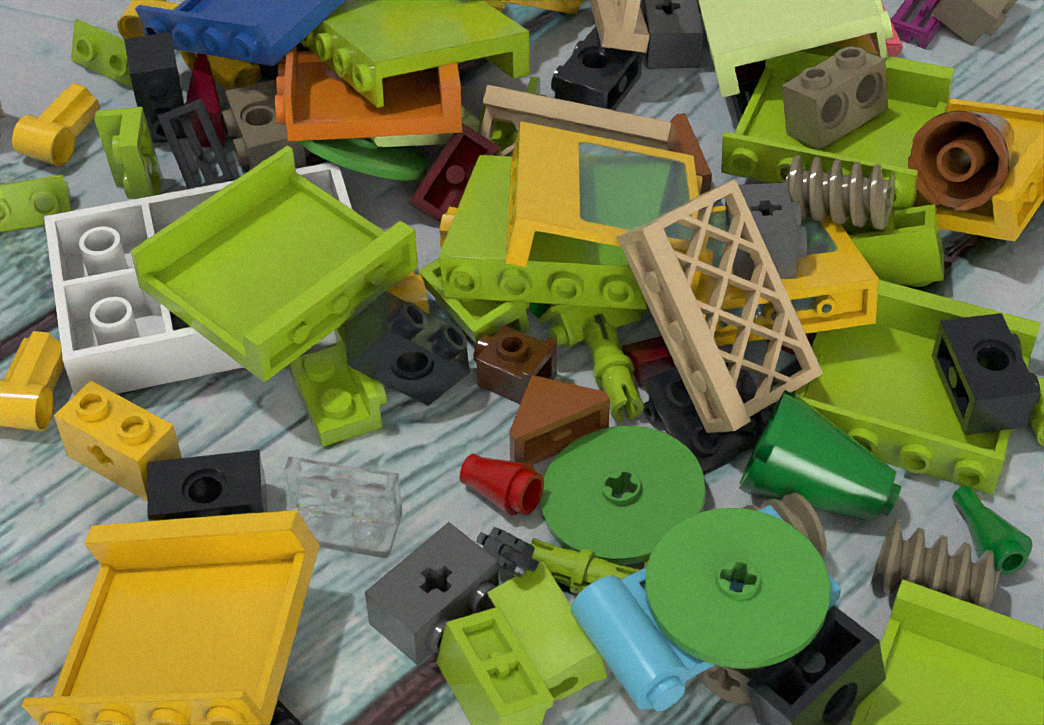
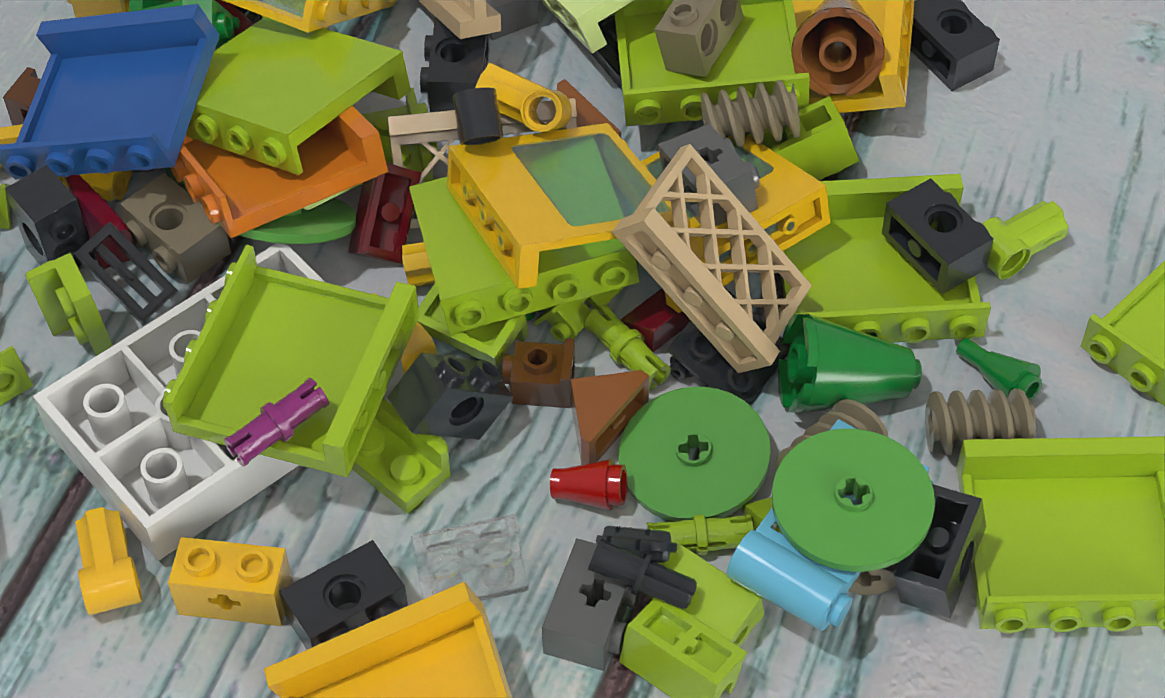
camera: 25 degrees left, 5 degrees up
(218, 304) = (276, 422): none -> magenta pin
(487, 578) = (642, 574): none -> black axle
(557, 102) = (477, 116): none -> black piece
(615, 104) = (521, 96): none -> yellow piece

